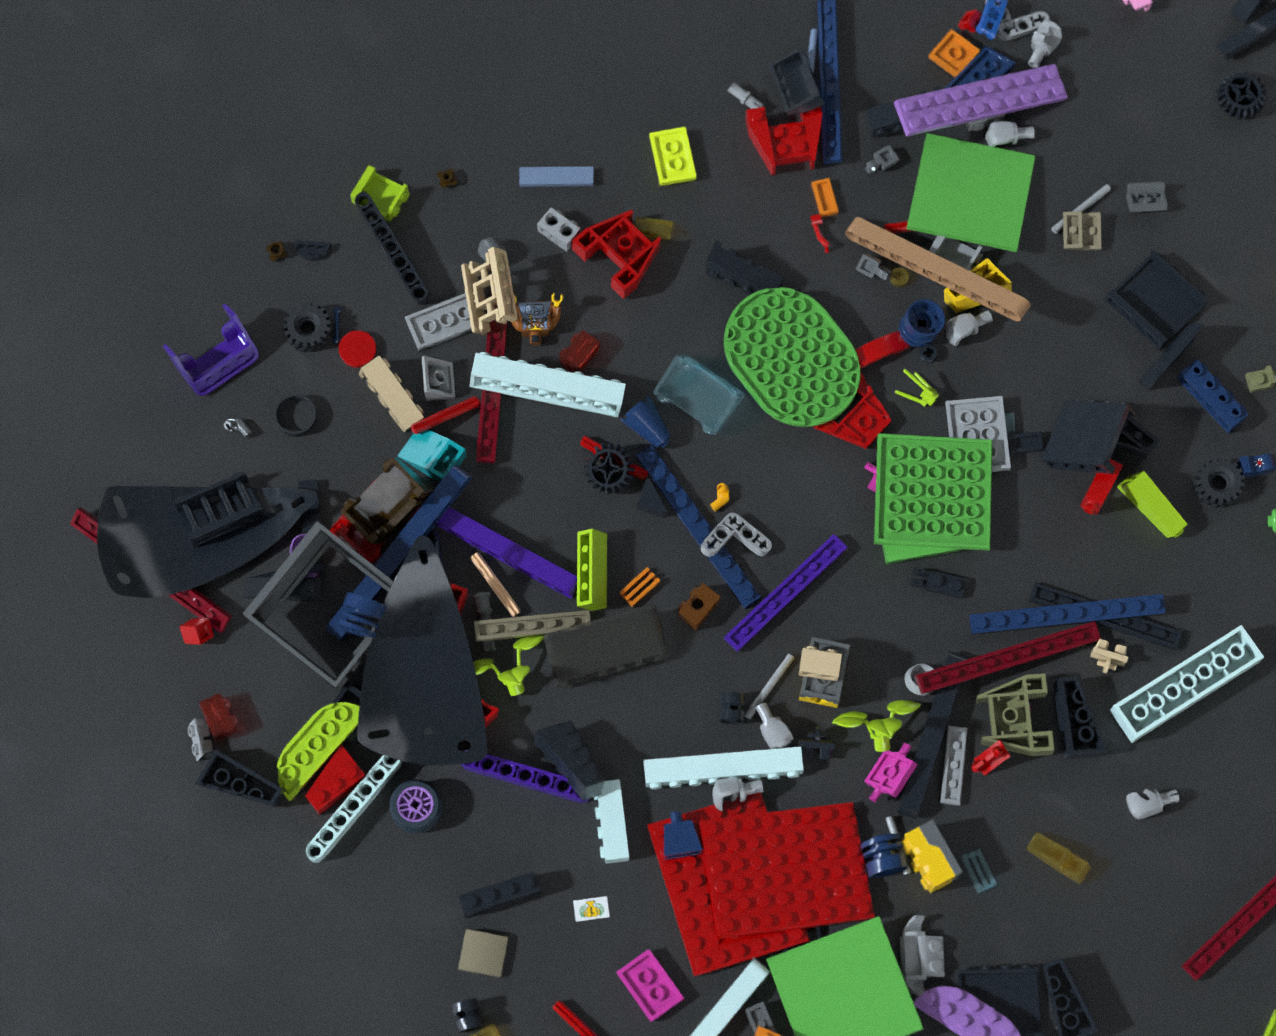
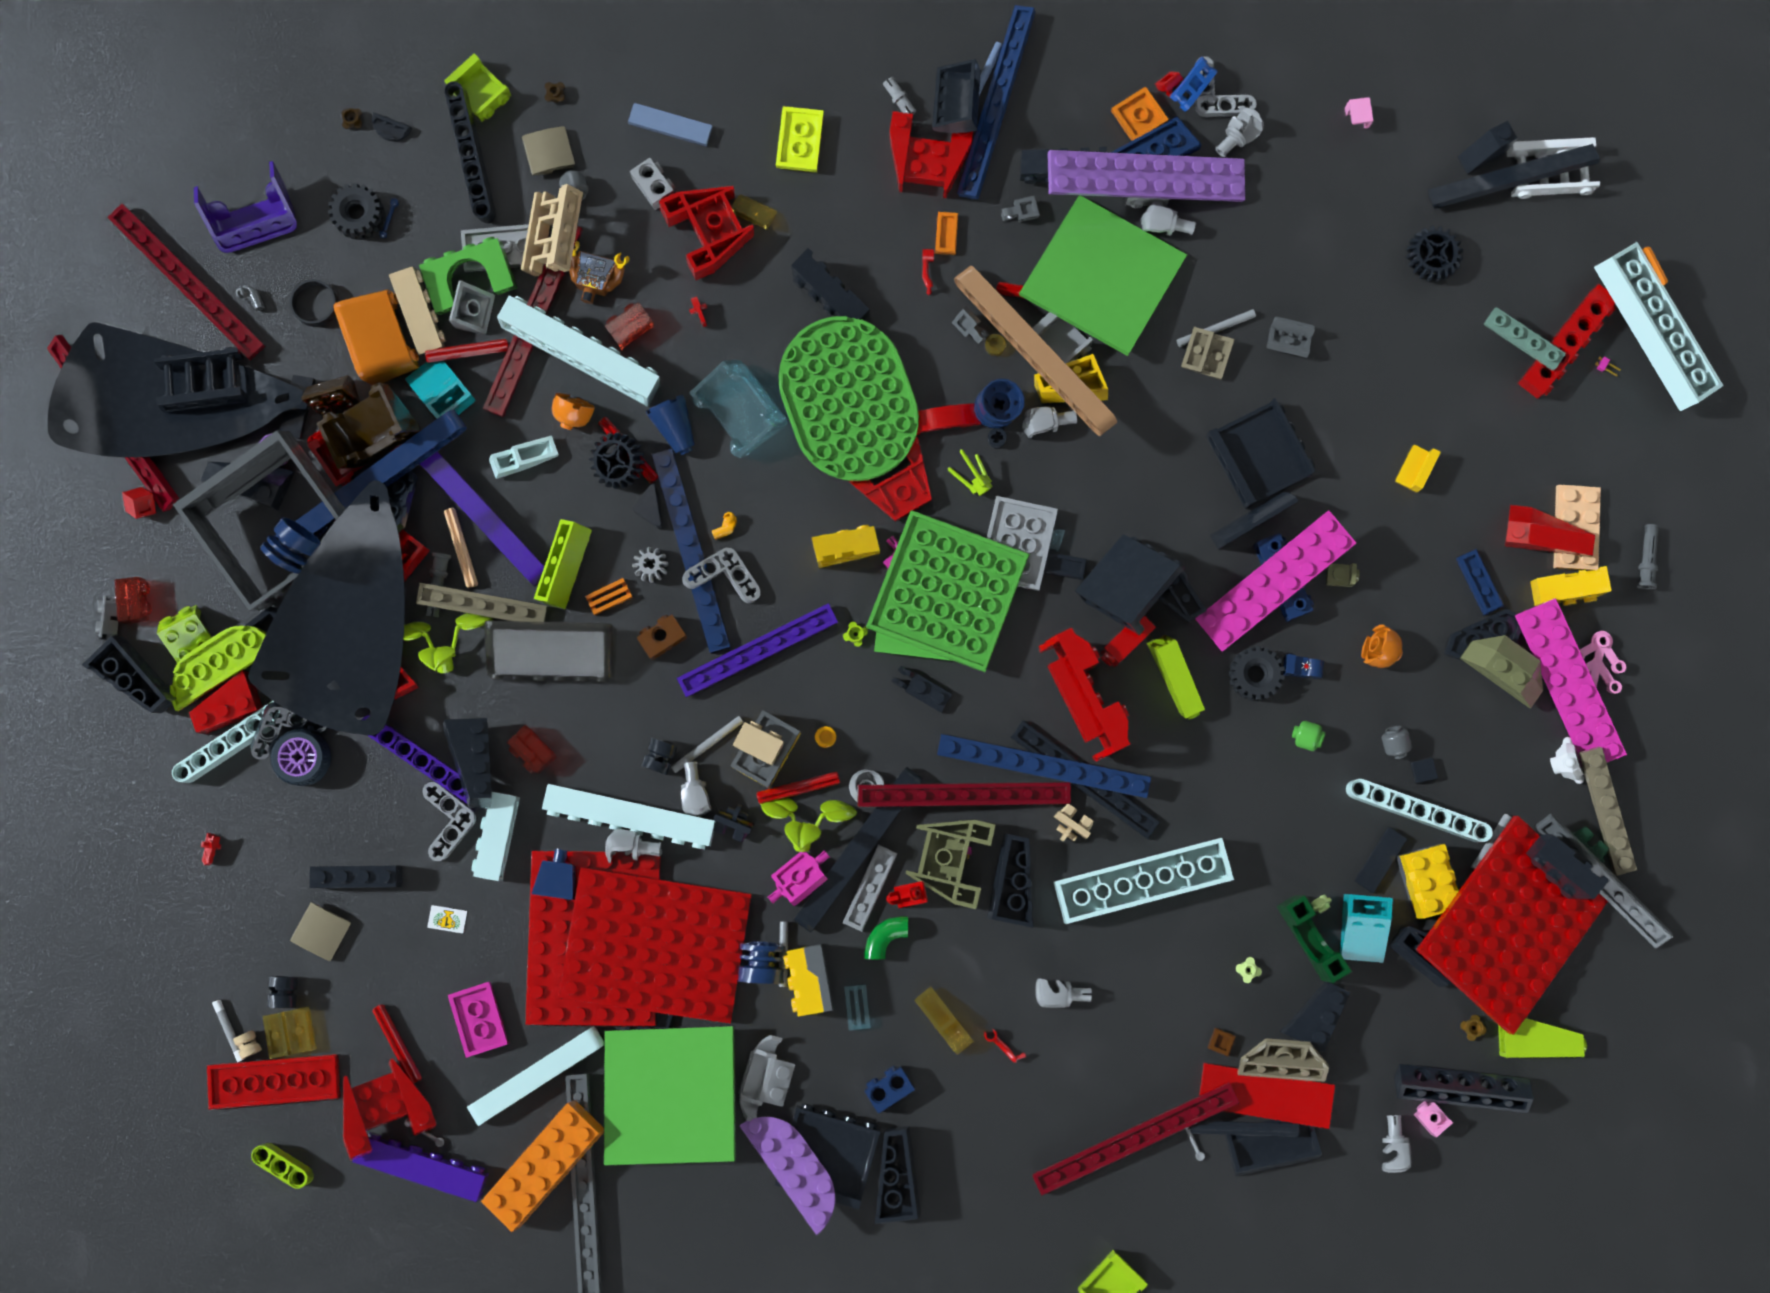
camera: 20 degrees right, 10 degrees up
(176, 430) = (186, 281): none -> dark red plate
(274, 730) = (183, 632): none -> lime bracket
(341, 487) = (331, 395): none -> dark brown slope
(357, 349) = (401, 250): red tile -> none
(359, 908) = (211, 844): none -> red piece
(364, 425) = (375, 337): none -> orange windscreen
(390, 776) = (280, 719): none -> black beam
(439, 329) = (439, 272): none -> bright green arch
(458, 228) = (548, 150): none -> dark tan slope
(524, 490) = (523, 456): none -> light aqua slope
(555, 439) = (571, 411): none -> orange cylinder
(568, 815) = (455, 816): none -> light grey beam
(617, 737) = (531, 750): none -> clear red brick
(633, 321) = (698, 309): none -> red piece
(669, 554) = (653, 557): none -> light grey gear
(831, 481) = (845, 546): none -> yellow wedge
(861, 698) = (798, 787): none -> red axle
(865, 549) = (857, 640): none -> lime plate
(869, 649) = (825, 737): none -> light orange tile
(980, 800) = (883, 934): none -> green cylinder
(1035, 933) = (893, 1093): none -> dark blue brick
(1072, 534) = (1076, 688): none -> red piece
(1124, 868) = (1004, 1047): none -> red piece
(1208, 399) = (1276, 580): none -> dark pink plate

